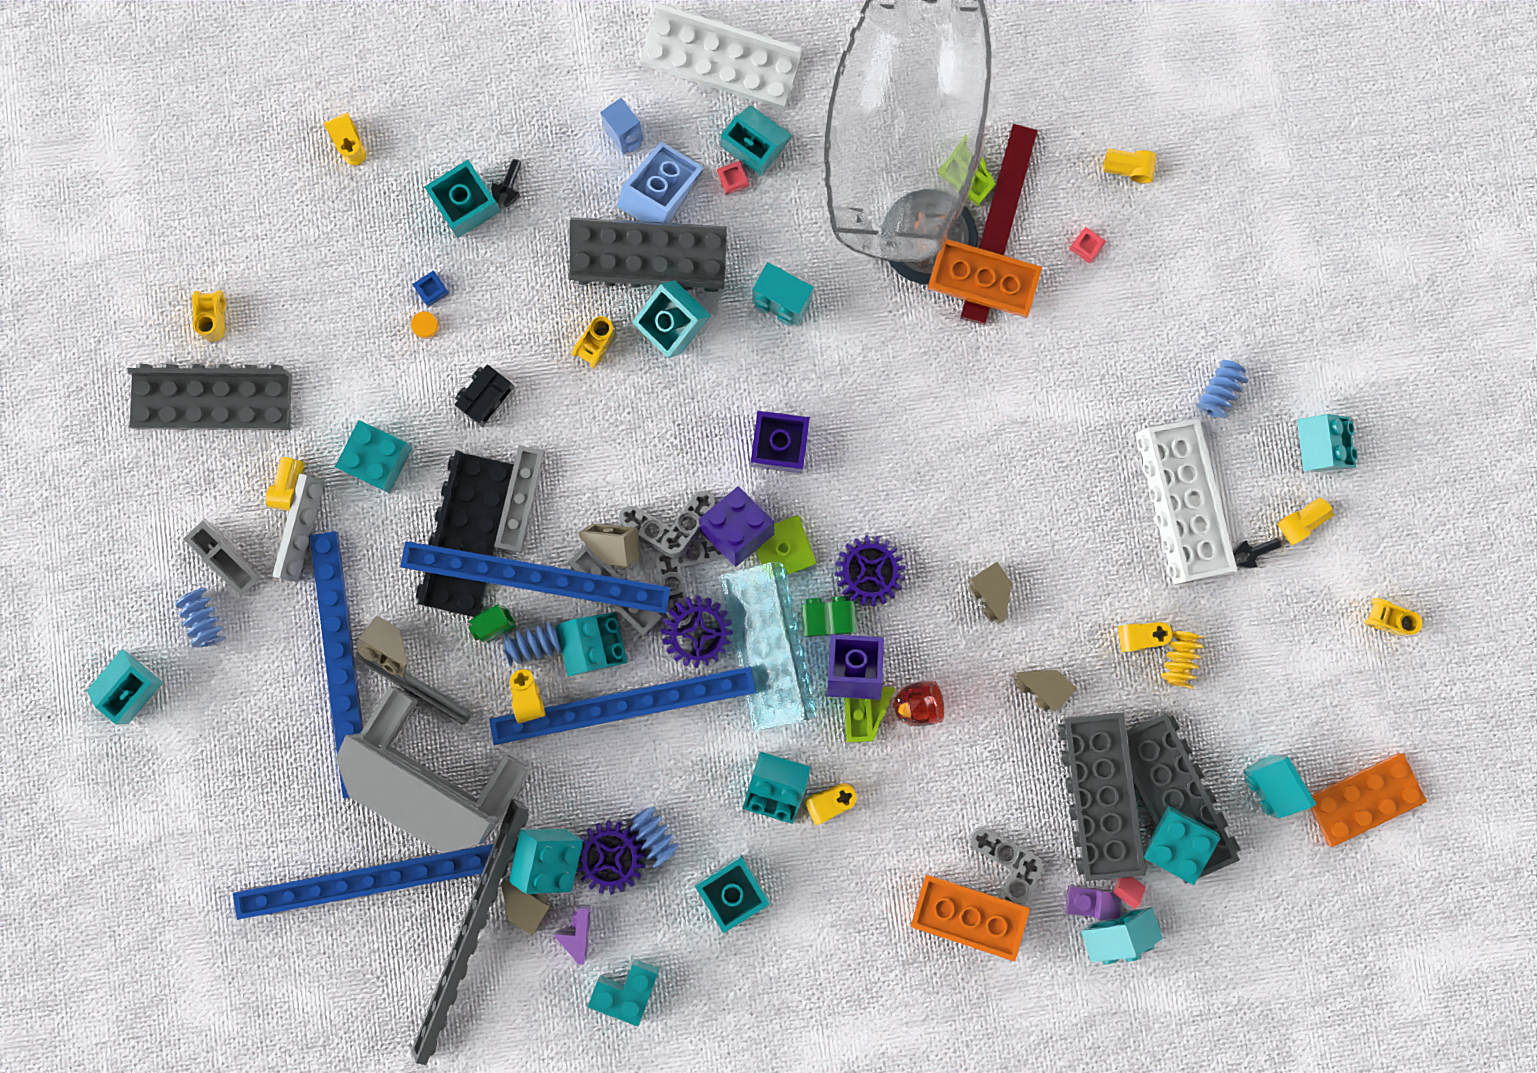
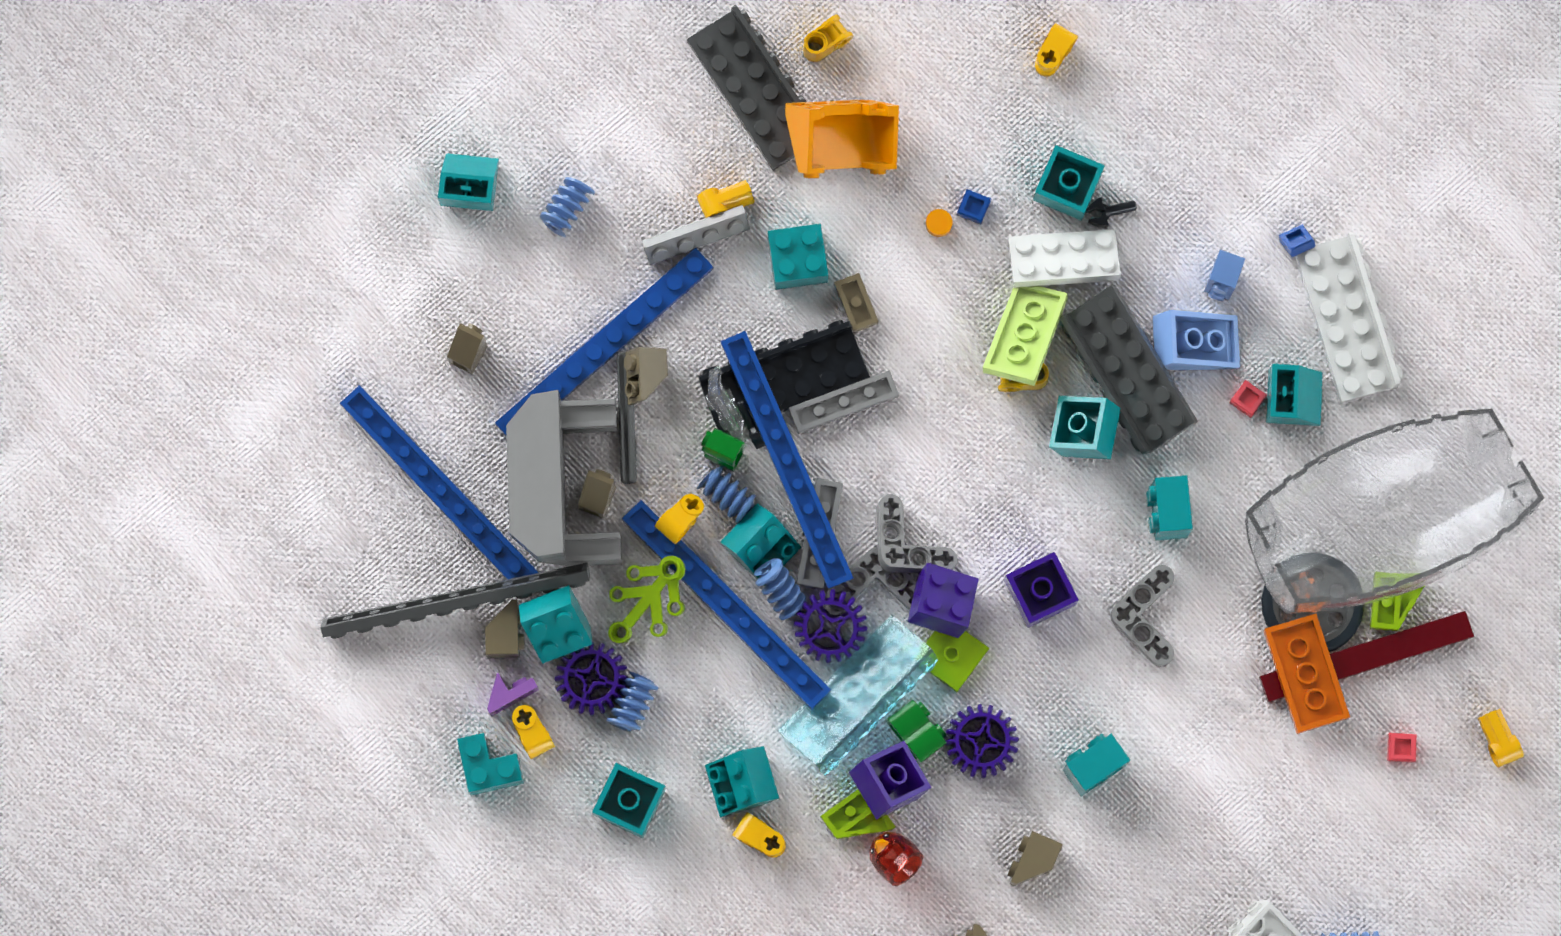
camera: 60 degrees right, 5 degrees down
(222, 557) = (629, 188): light grey slope -> none
(262, 781) = (467, 348): none -> dark tan slope
(297, 353) = (843, 135): none -> light orange windscreen
(444, 434) = (856, 302): none -> dark tan plate
(455, 599) = (724, 404): none -> clear wing
(459, 752) = (597, 493): none -> dark tan slope
(483, 394) = (912, 312): black brick -> none
(498, 590) = (750, 423): none -> black bar
(522, 244) = (1064, 258): none -> white plate
(562, 315) = (1025, 333): none -> yellowish green plate
(575, 763) = (650, 597): none -> lime plant
(612, 544) = (858, 505): dark tan slope -> none
(627, 937) = (534, 735): none -> yellow piece
(632, 54) = (1297, 240): none -> blue tile
(639, 652) = (782, 586): none -> medium blue piece
(852, 382) = (1137, 620): none -> light grey beam
(950, 492) = (1096, 764): none -> teal brick

